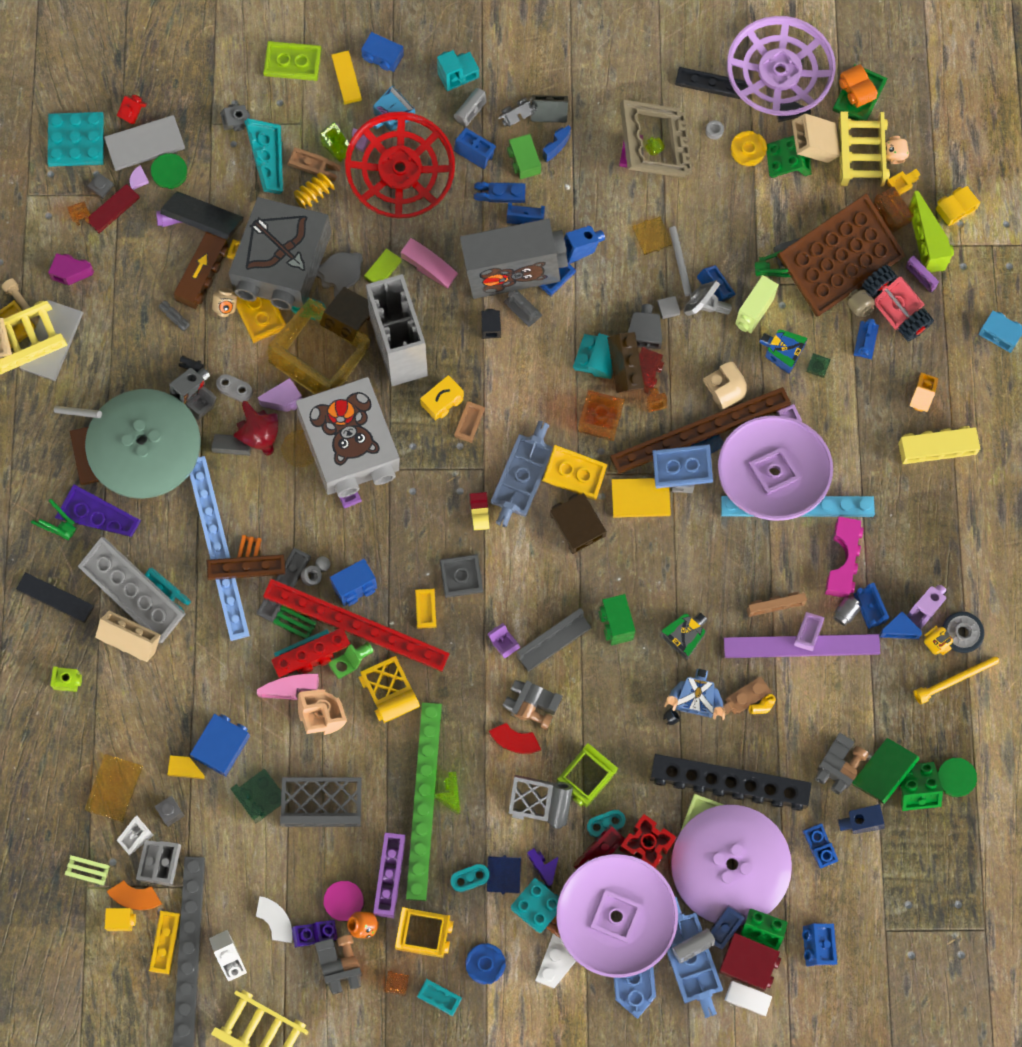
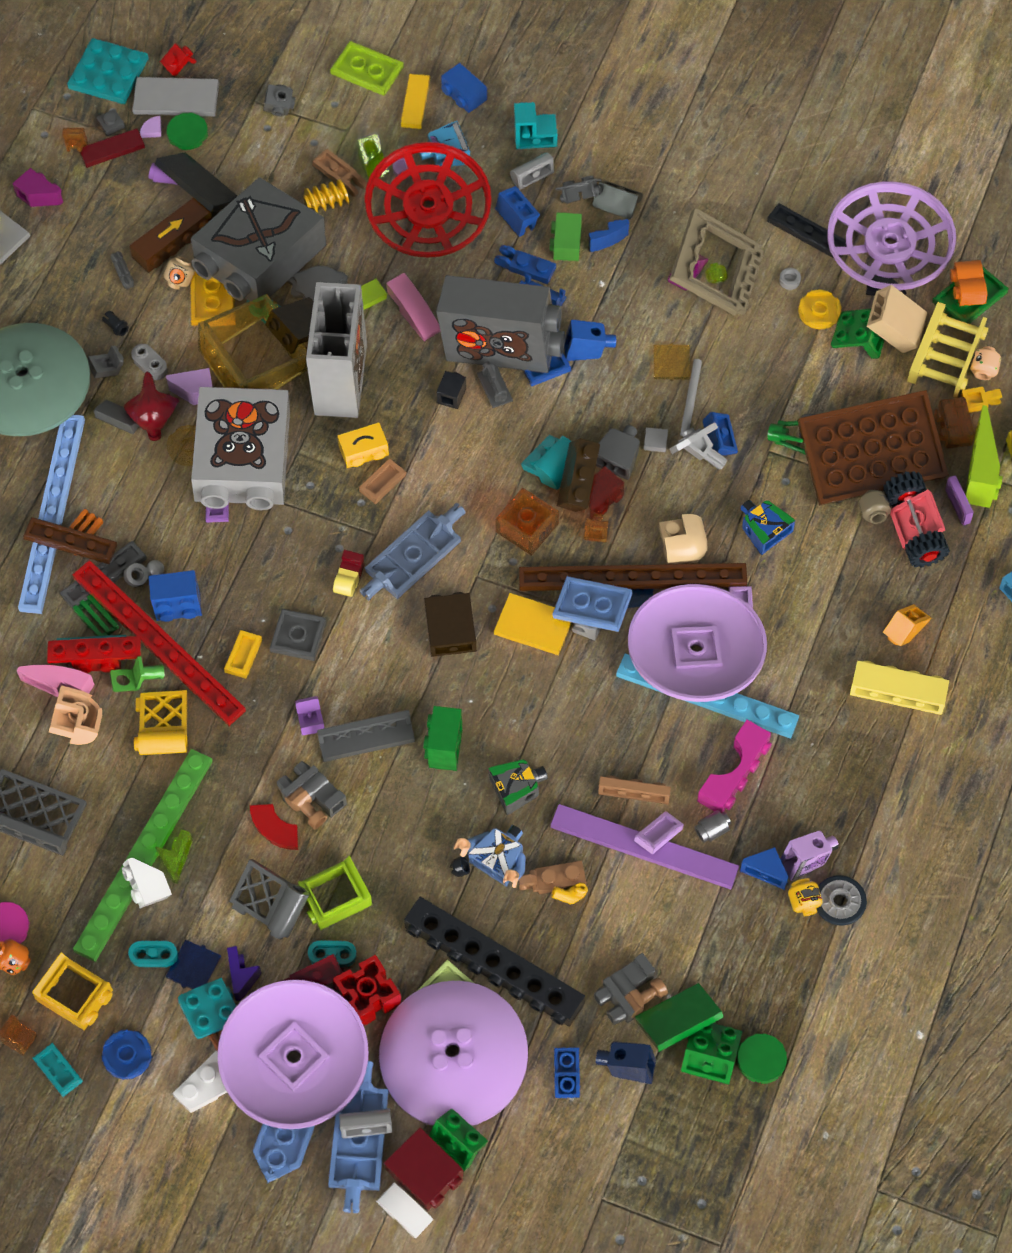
camera: 25 degrees right, 10 degrees down
(188, 384) = (99, 337): dark grey torso -> none
(267, 152) = (295, 145): teal wing -> none
(389, 875) = (65, 915): medium lavender brick -> none
(441, 825) = (147, 882): none -> white slope
(574, 472) = (471, 570): yellow tile -> none
(726, 926) = (414, 1117): dark blue plate -> none
(756, 304) = (753, 466): yellowish green brick -> none
(818, 365) = (797, 555): clear green plate -> none
(819, 944) = (515, 1182): blue bracket -> none
(866, 339) = (865, 547): blue hinge -> none
(871, 606) = (743, 831): blue hinge -> none
(923, 694) = (763, 951): yellow piece -> none

